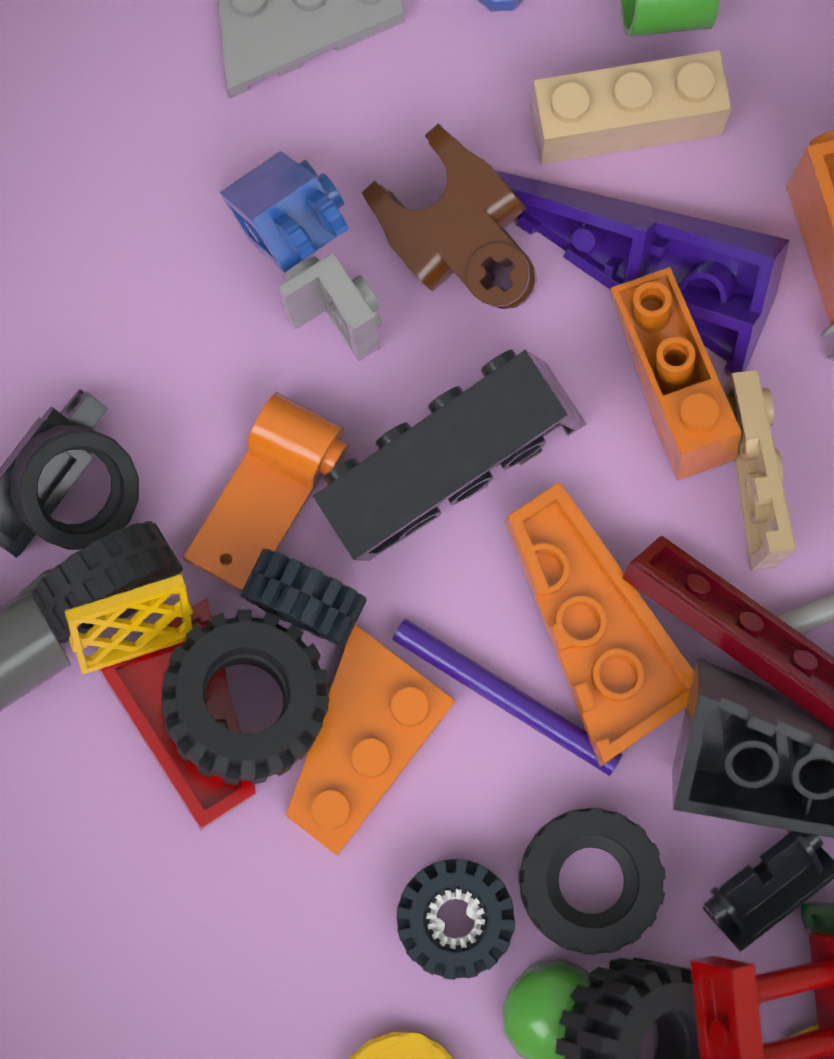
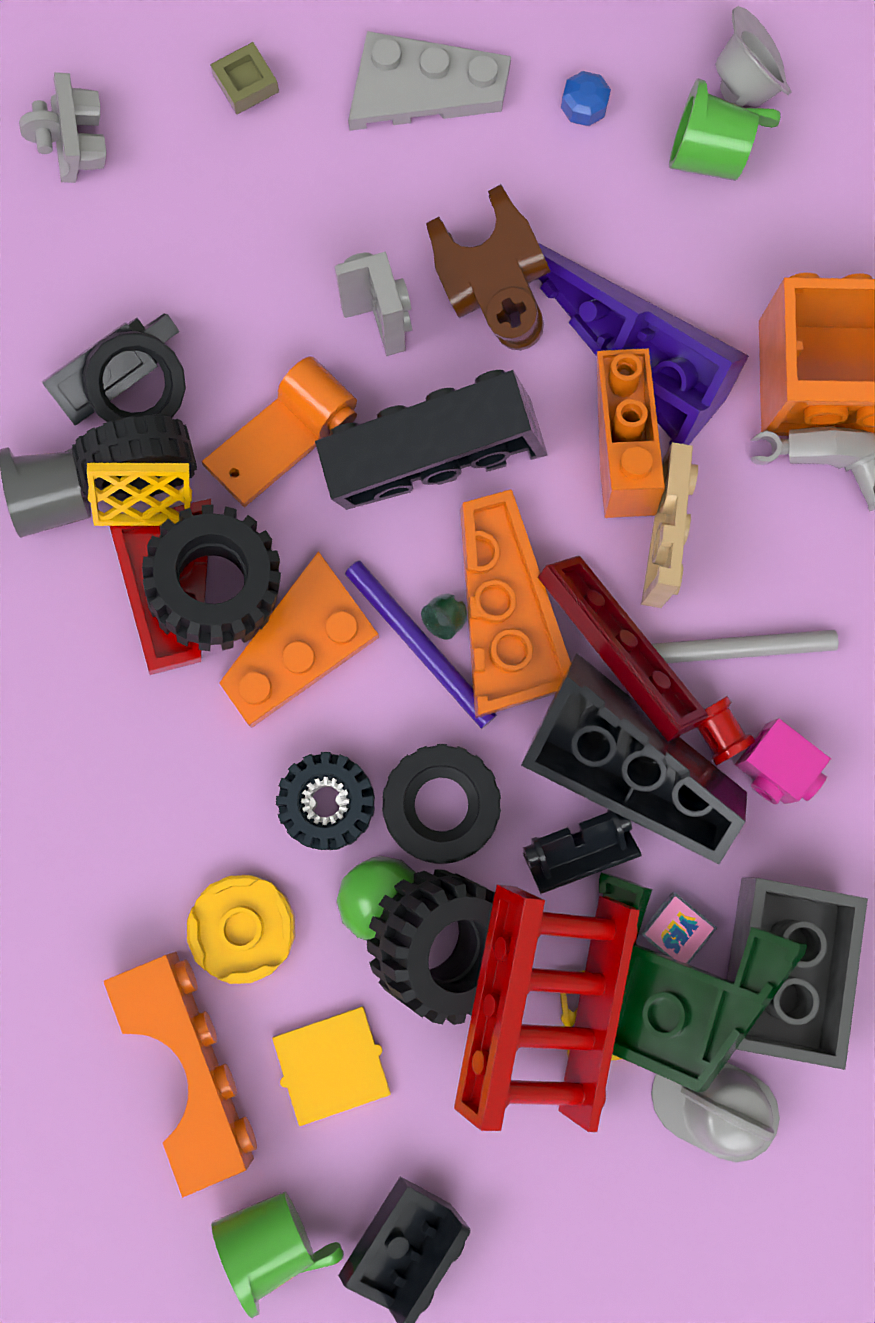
camera: 10 degrees right, 0 degrees up
(87, 74) = (244, 78): none -> olive plate
(286, 209) = (363, 216): blue hinge -> none
(303, 596) = (284, 516): black bush -> none
(526, 655) = (447, 606): none -> clear green hinge
(630, 107) = (655, 219): tan brick -> none

